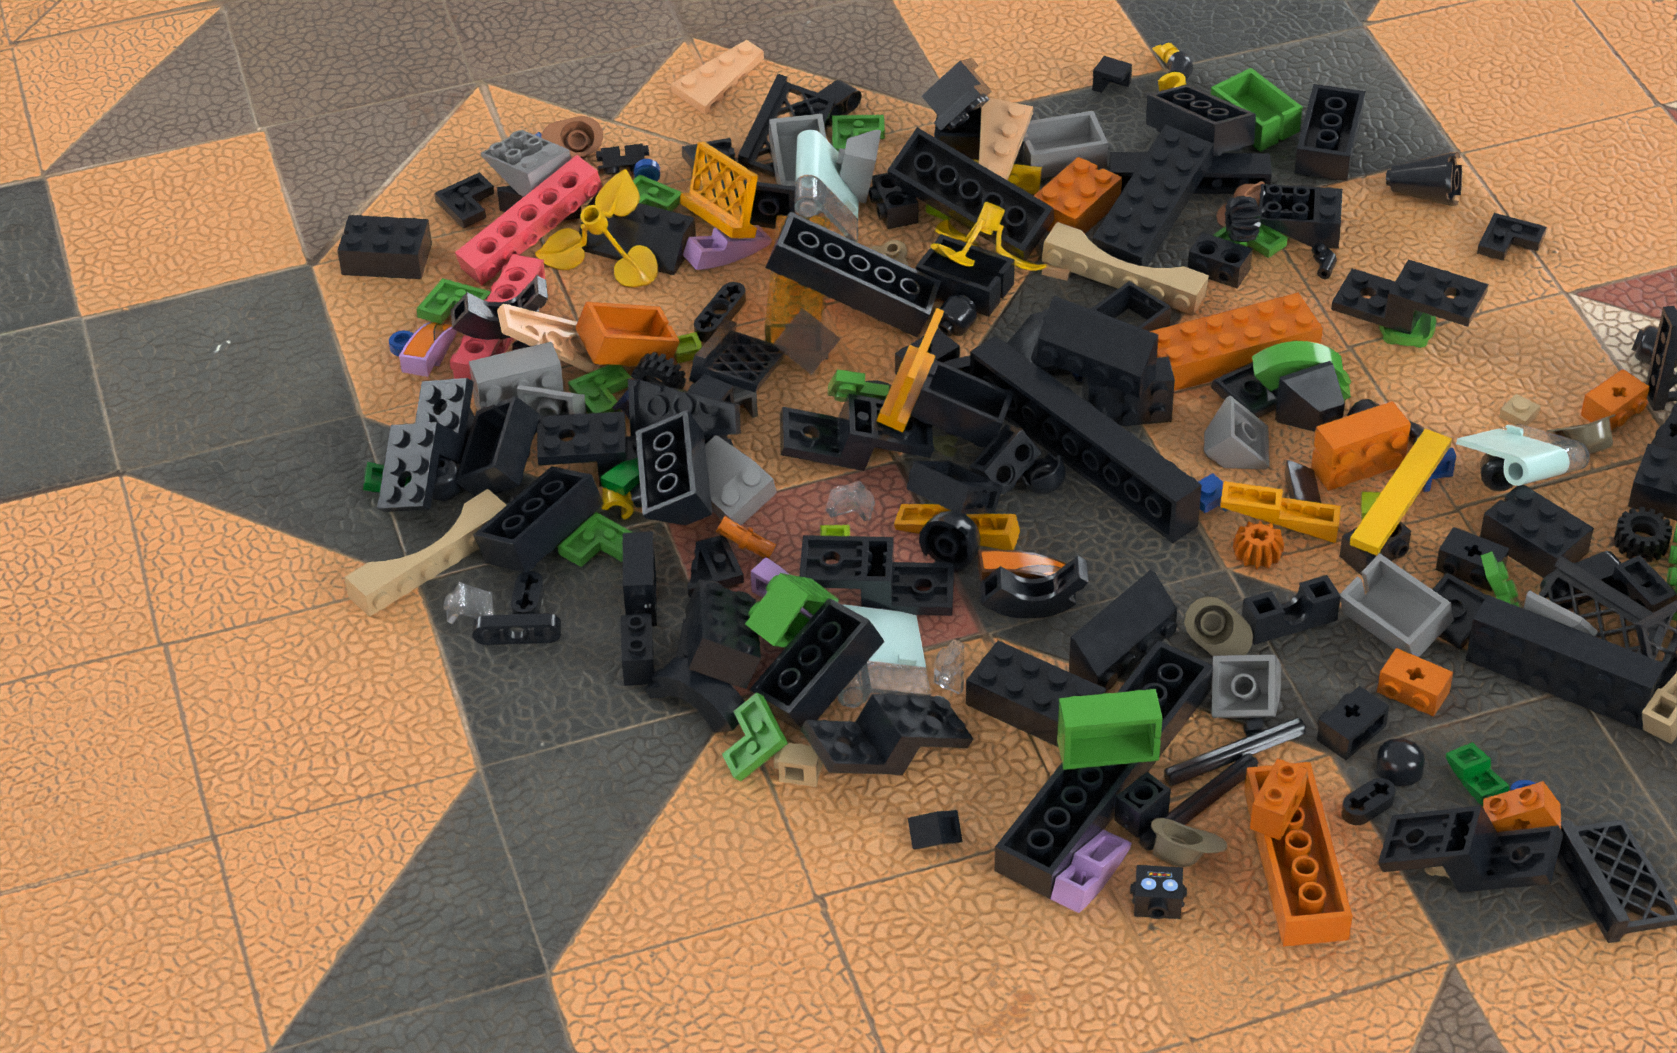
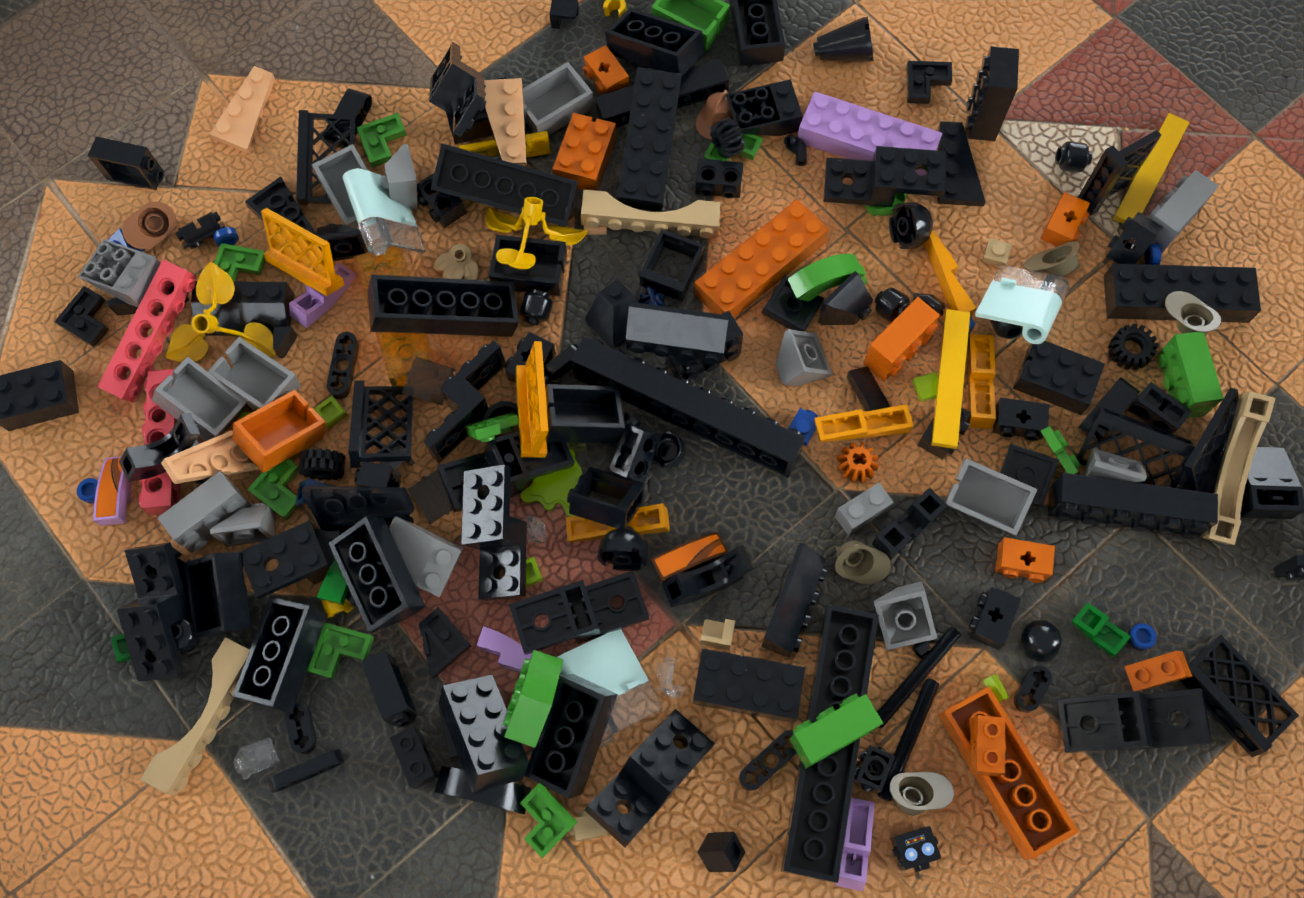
camera: 20 degrees left, 25 degrees up
(443, 297) = (110, 429): bright green plate -> none
(553, 66) = (126, 163): none -> black window
(565, 280) = (202, 395): none -> light grey piece
(621, 282) = (253, 375): none -> light grey piece
(667, 271) = (283, 340): none -> black slope
(745, 538) = (457, 606): orange pin -> none
(764, 447) = (431, 497): none -> clear smoke piece
(816, 478) = (494, 533): none -> black bracket
(840, 351) = (465, 400): none -> black bracket
(893, 474) = (553, 488): none -> lime tile
(1021, 784) = (780, 741): none -> black beam
(1034, 645) = (717, 634): none -> tan panel
(1132, 132) = (605, 71): none -> orange brick
(1244, 579) = (864, 509): none -> light grey brick
(1324, 784) = (996, 687): none -> lime tile
(1383, 247) = (856, 131): none -> lavender brick
(1426, 355) = (910, 225): none -> black cylinder
(1444, 514) = (981, 381): none -> light orange slope
(1448, 408) = (945, 270): none -> light orange slope
(1507, 326) = (962, 180): none -> black wing
(1569, 251) = (992, 93): none -> black brick

